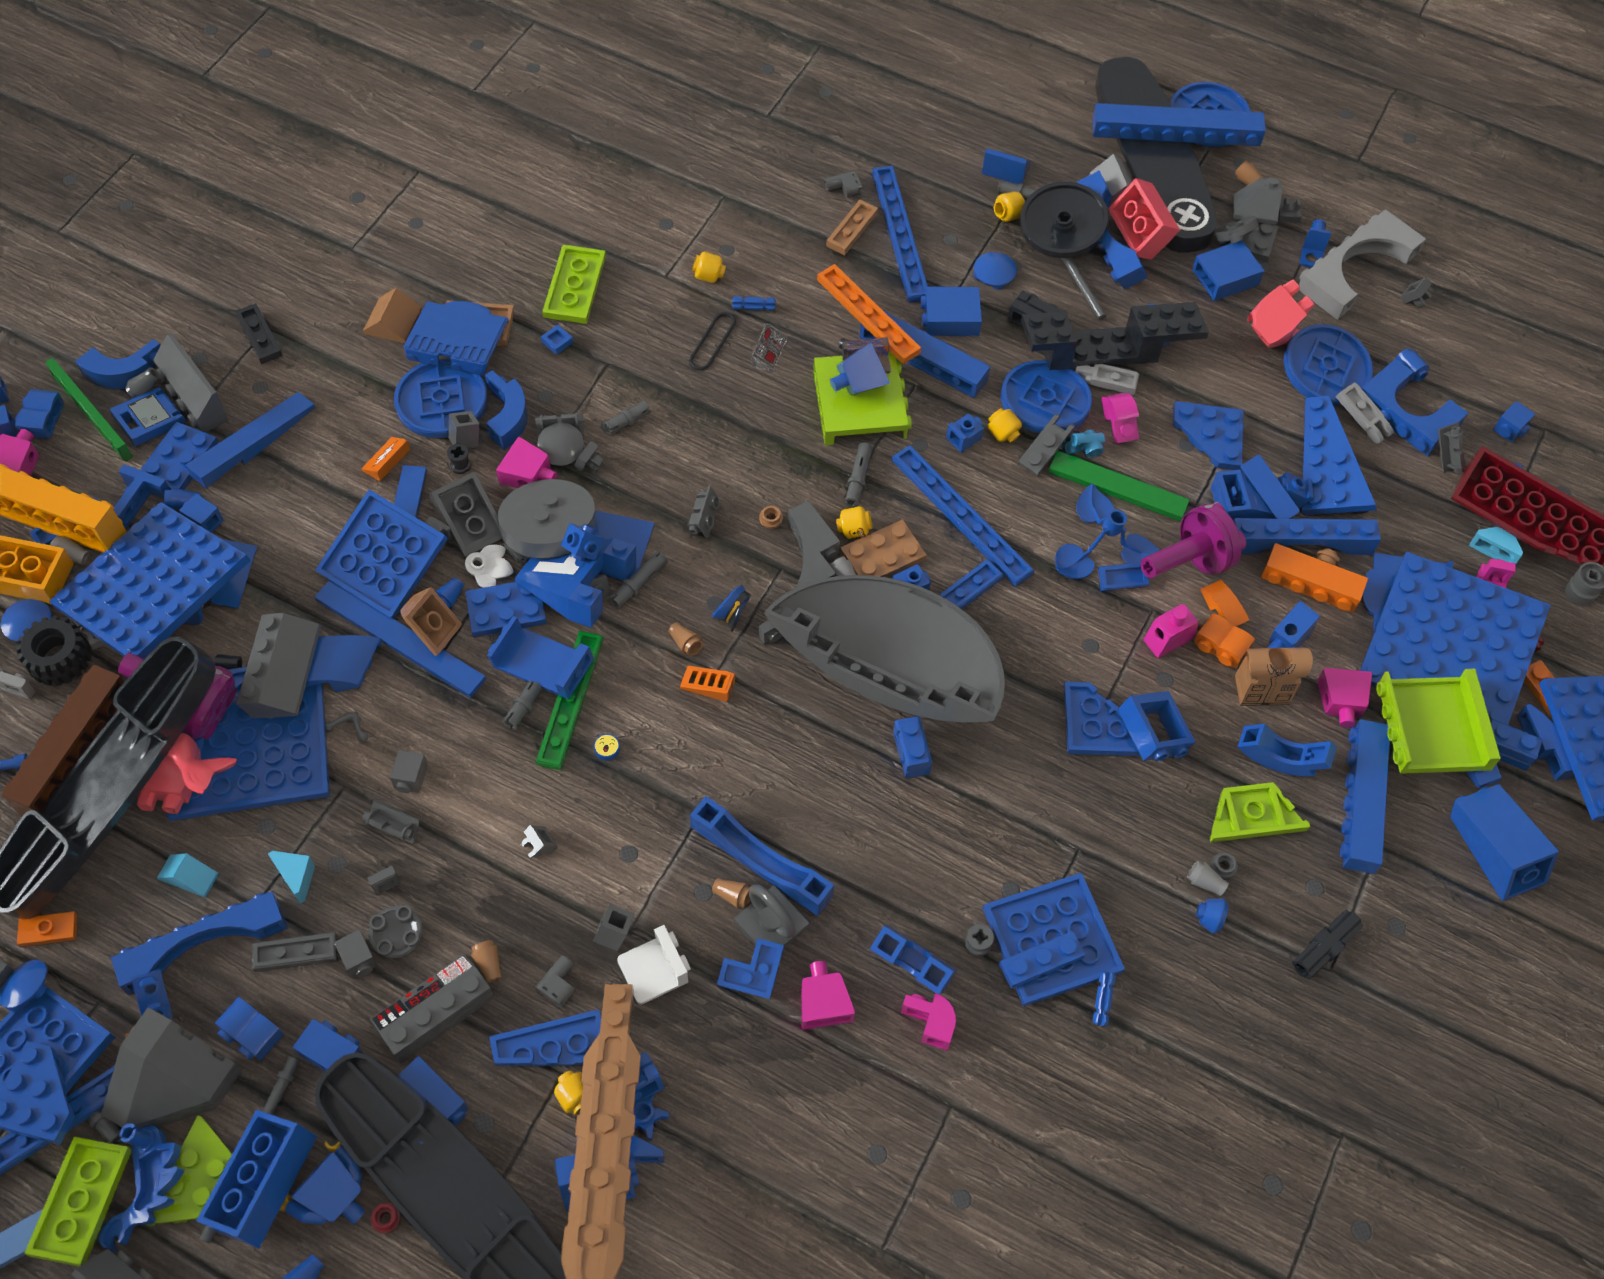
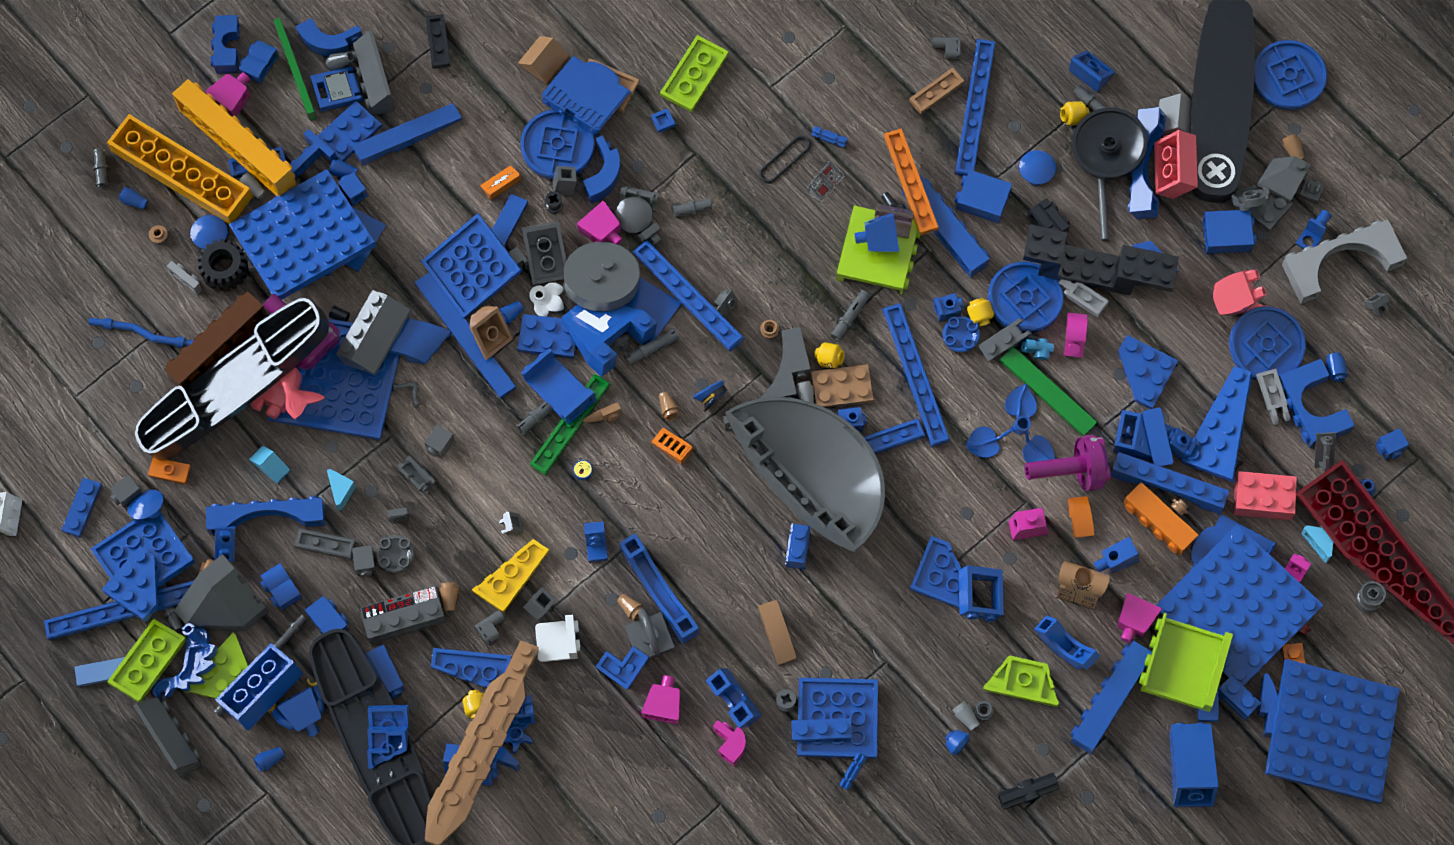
camera: 25 degrees right, 10 degrees up
(379, 1211) = (326, 736): dark red plate -> none
(463, 1176) = (387, 732): none -> blue slope
(560, 914) = (511, 577): none -> yellow wing
(582, 541) = (617, 309): blue brick -> none
(614, 669) = (608, 413): none -> medium nougat plate
(655, 823) = (596, 541): none -> blue bracket
(663, 508) = (688, 296): none -> blue tile
(708, 267) = (805, 93): yellow head -> none
(931, 858) = (777, 632): none -> medium nougat slope
(993, 455) = (961, 334): none -> blue dish
(1122, 577) = (1011, 467): blue tile -> none
(1178, 124) = (1247, 84): blue brick -> none
(1224, 640) = (1065, 544): orange brick -> none
(1414, 516) = (1264, 495): none -> coral brick

